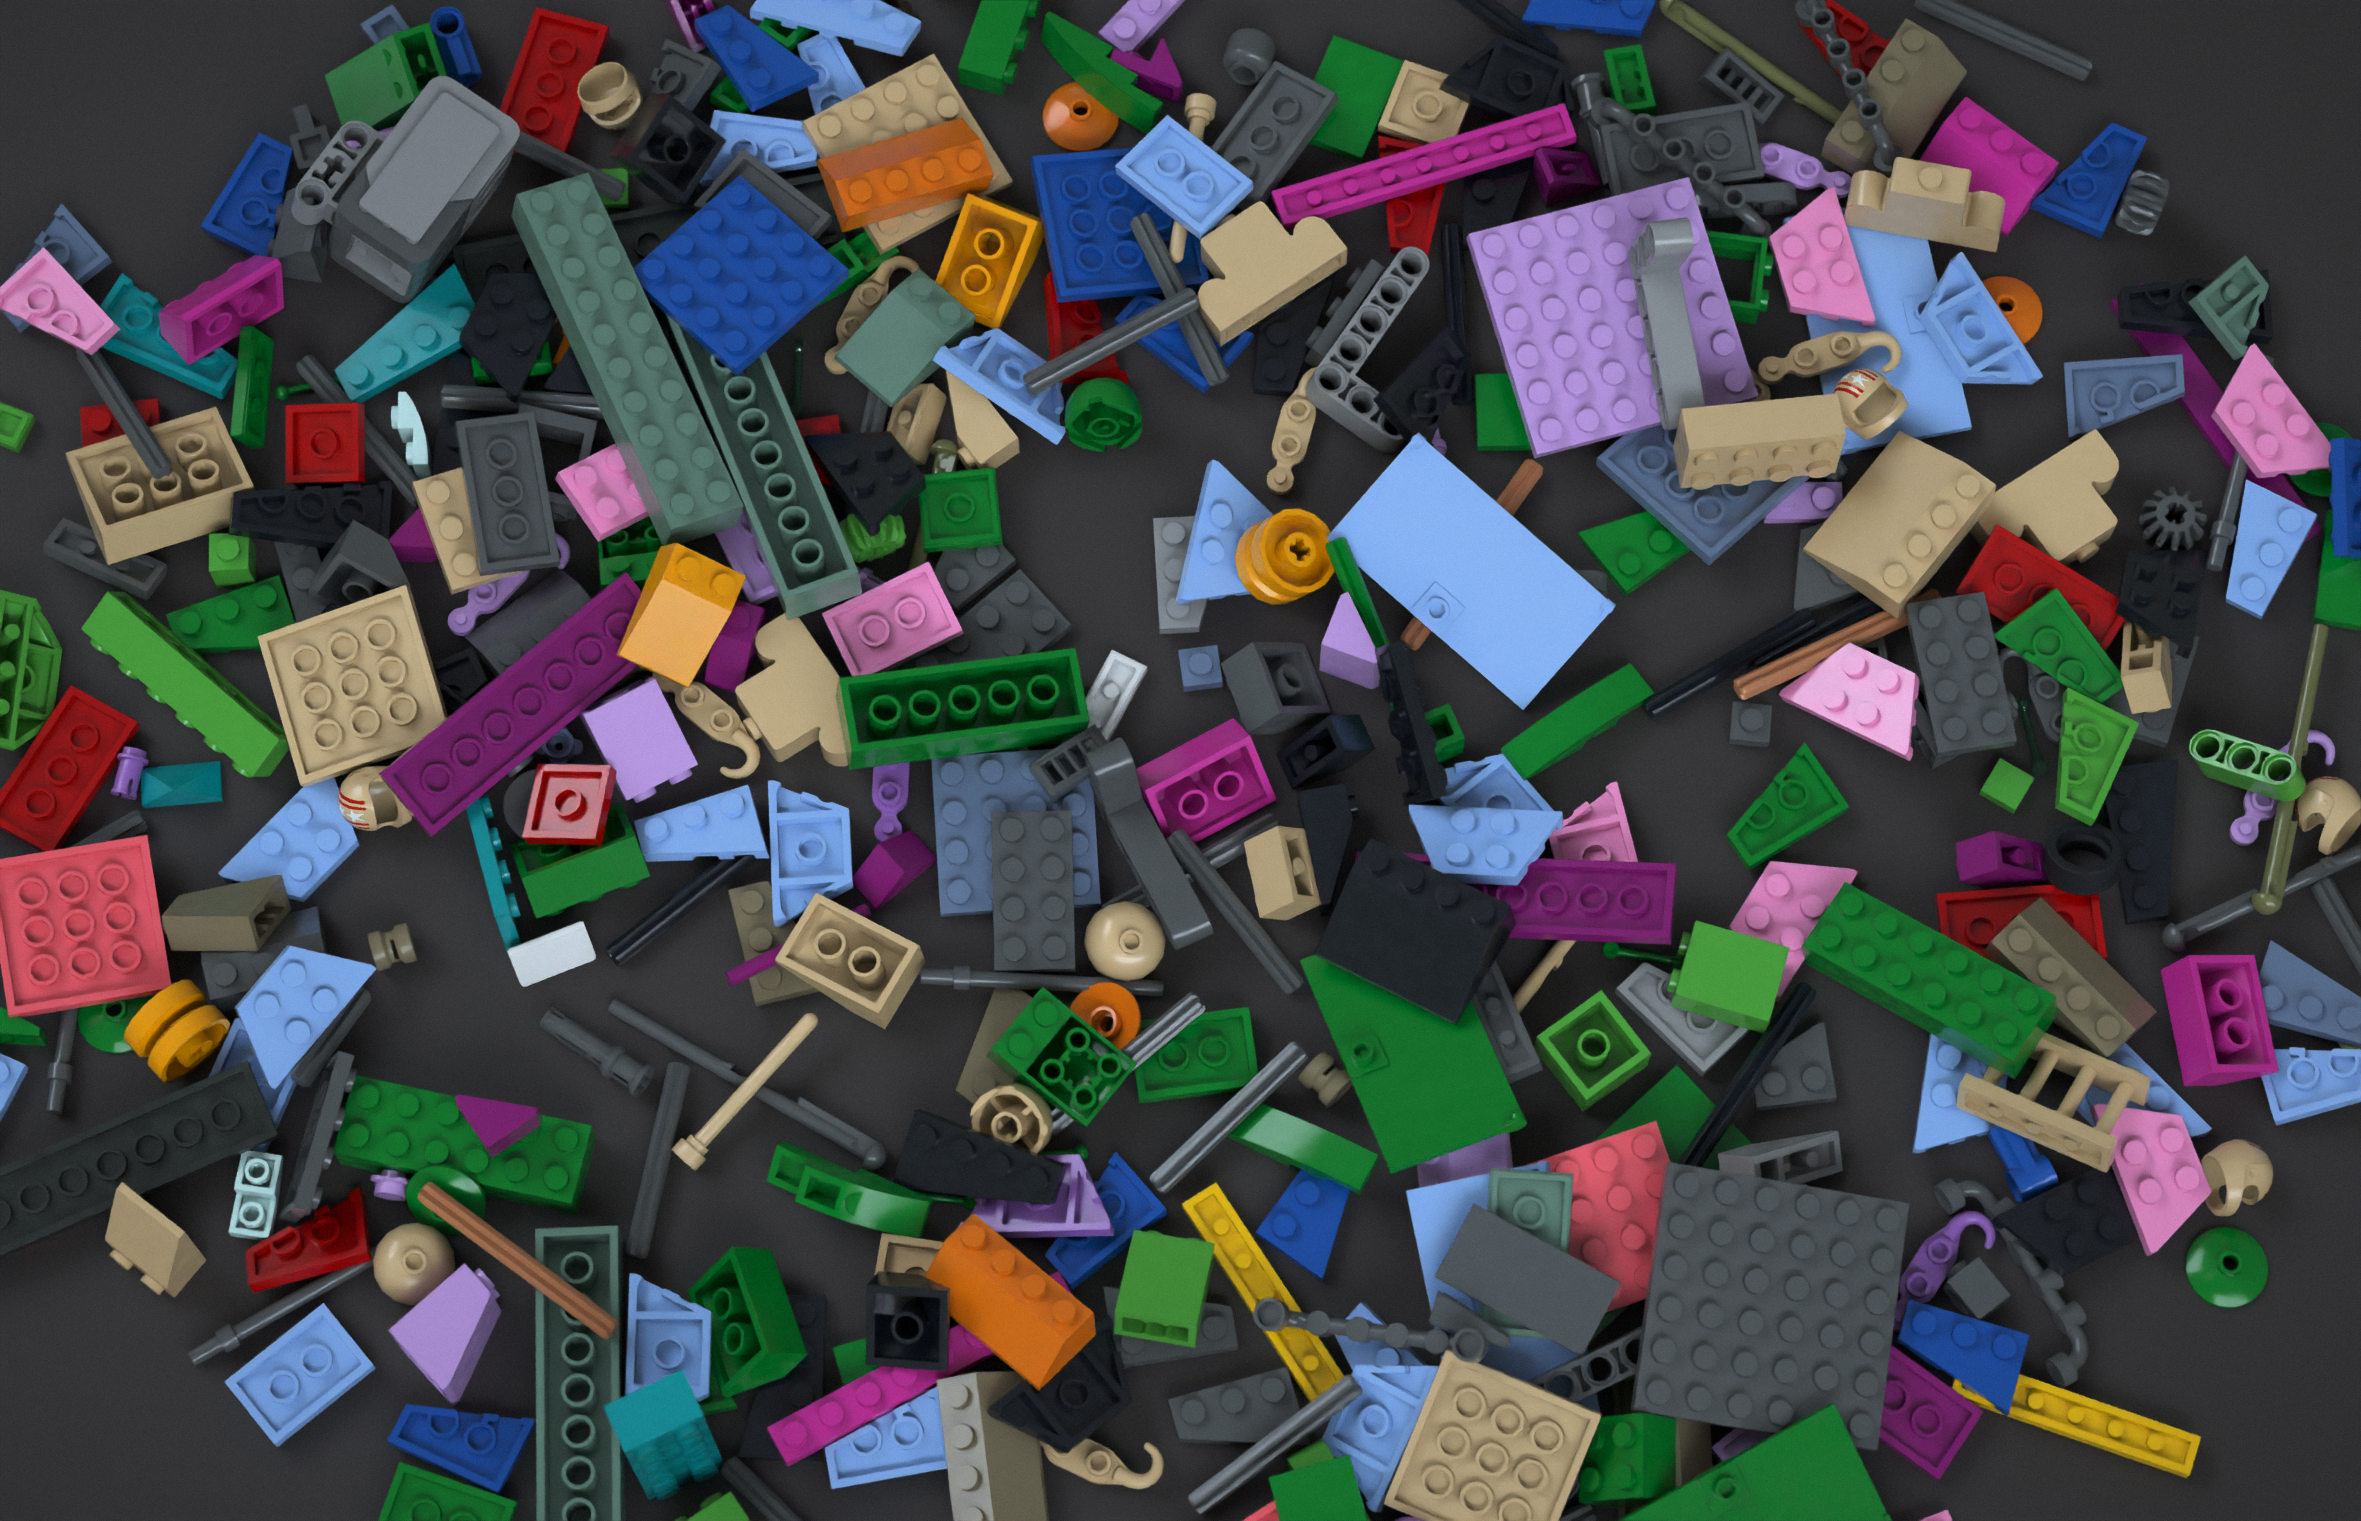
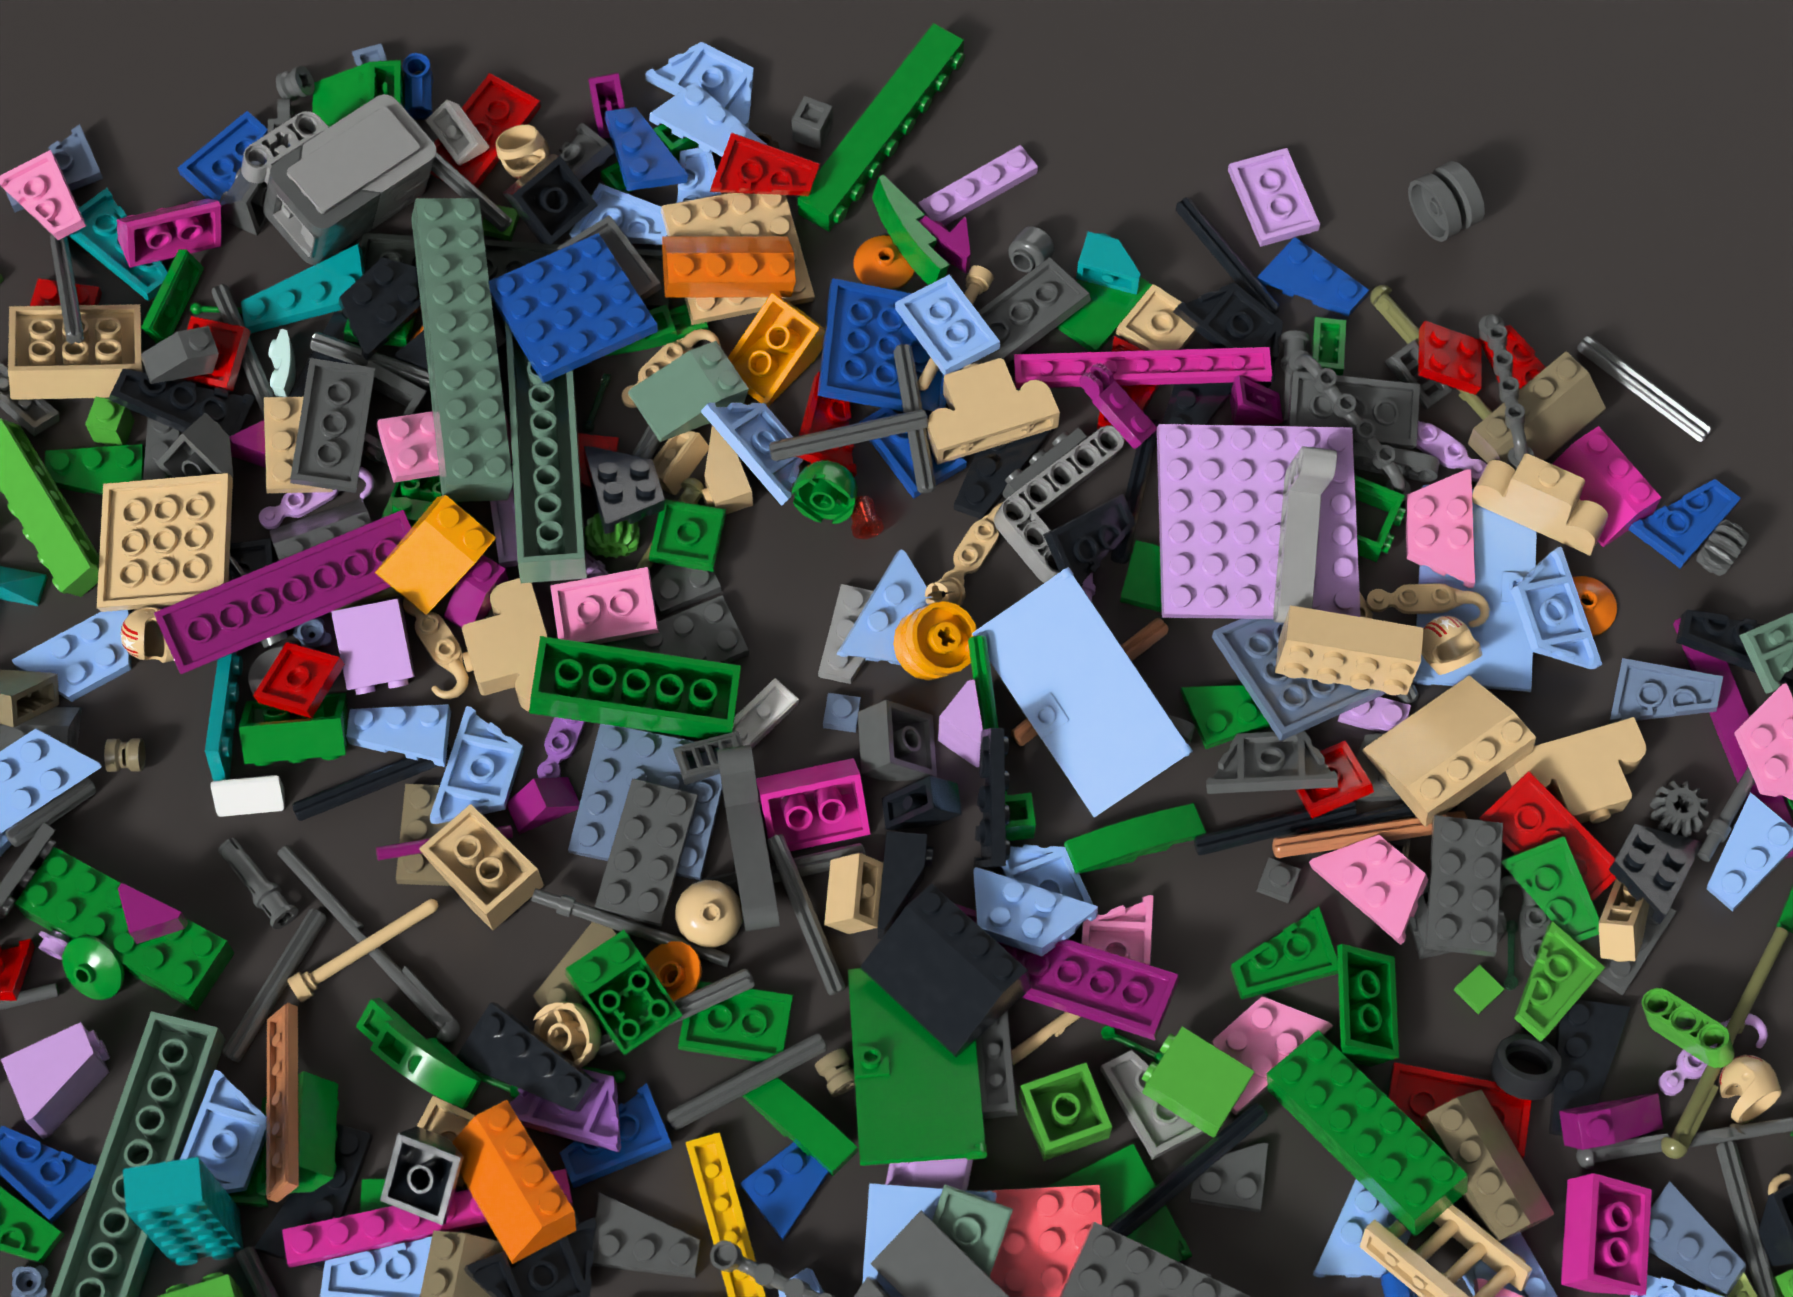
camera: 15 degrees right, 5 degrees down
(297, 458) = (181, 356): none -> dark grey slope
(305, 83) = (295, 83): none -> dark grey wheel
(412, 1262) = (48, 1009): tan cylinder -> none
(518, 1260) = (127, 1033): nougat axle -> none
(523, 93) = (457, 132): none -> white slope
(720, 1287) = (282, 1103): none -> nougat tile
(908, 45) = (762, 169): none -> red wing
(1157, 434) = (865, 519): none -> clear red bush
(1164, 1288) = (646, 1208): bright green brick -> none
(1279, 487) = (946, 584): none -> tan bush
(1346, 50) = (1107, 264): none -> teal slope
(1409, 221) = (1117, 405): none -> magenta hinge
(1702, 595) = (1268, 764): none -> dark grey wing
(1773, 58) = (1450, 357): none -> red plate
(1775, 594) = (1352, 782): none -> red plate
(1787, 1159) = (1202, 1250): light grey slope -> none
(1892, 839) = (1367, 1006): none -> green slope
(2000, 861) = (1455, 1049): magenta slope -> none
(2190, 893) = (1610, 1121): none -> magenta slope

